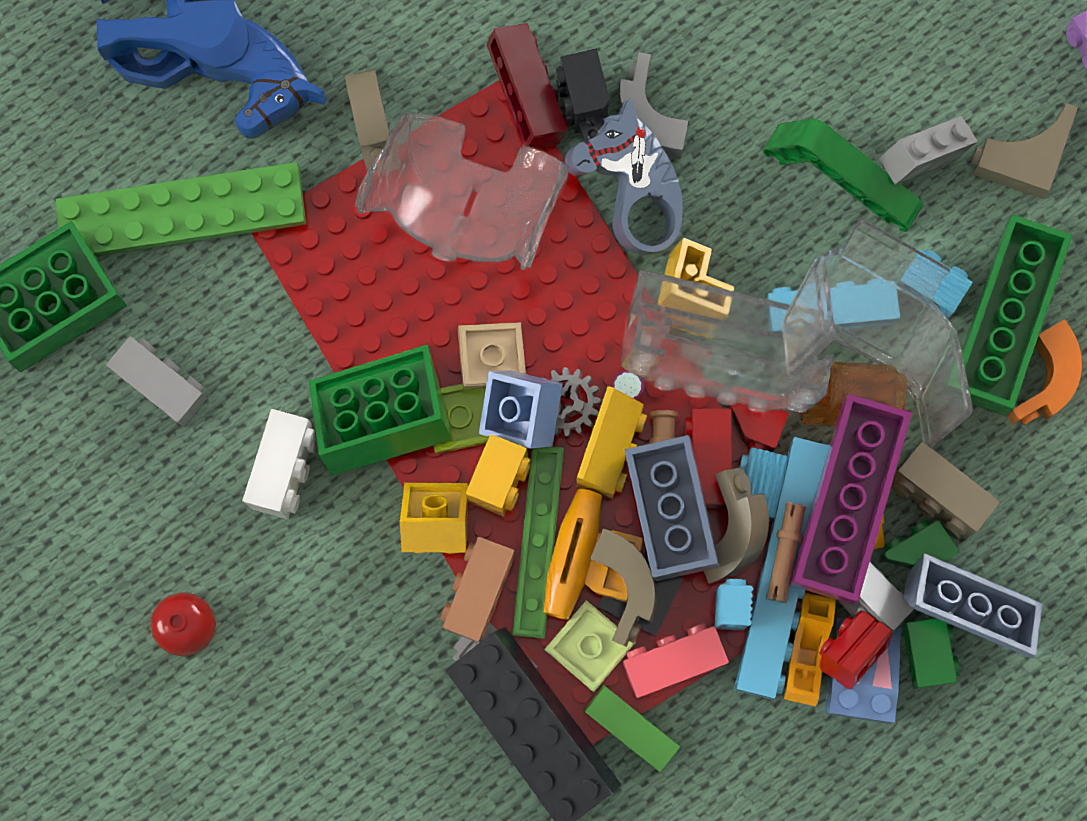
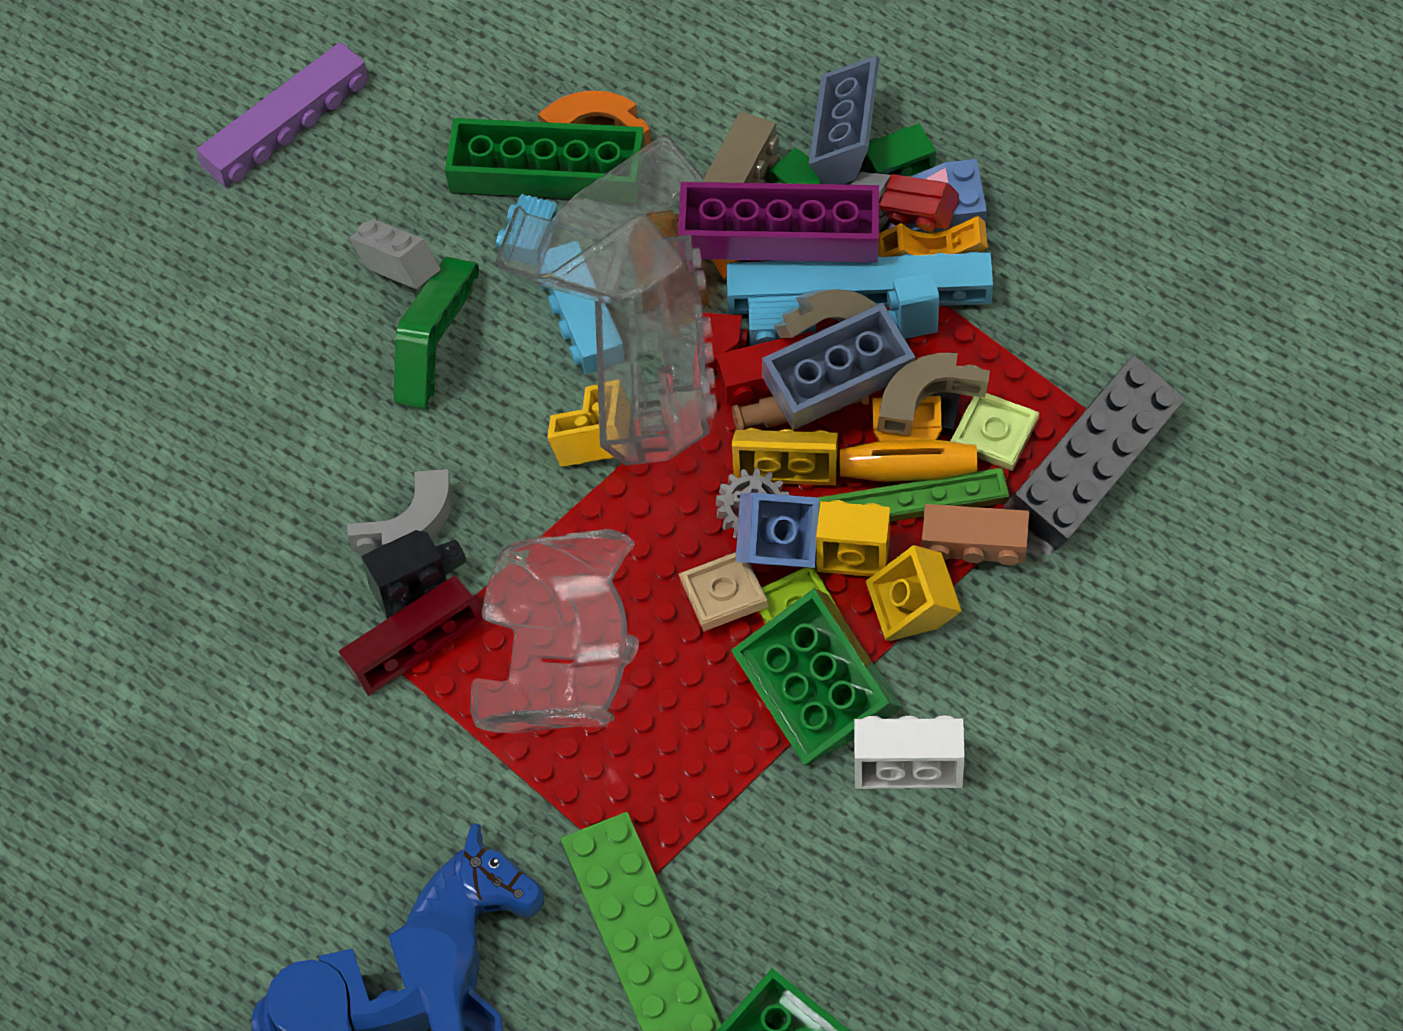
camera: 105 degrees left, 20 degrees down
(157, 380) = (853, 916): light grey brick -> none
(183, 624) = (1110, 814): red cylinder -> none
(368, 113) = (482, 772): dark tan arch -> none
(628, 384) = (716, 462): light aqua tile -> none
(631, 728) = (1061, 376): bright green tile -> none
(643, 169) = (487, 494): sand blue animal -> none
(674, 660) = (983, 344): coral brick -> none
(786, 552) = (847, 269): medium nougat pin -> none
(1026, 163) = (376, 174): dark tan arch -> none

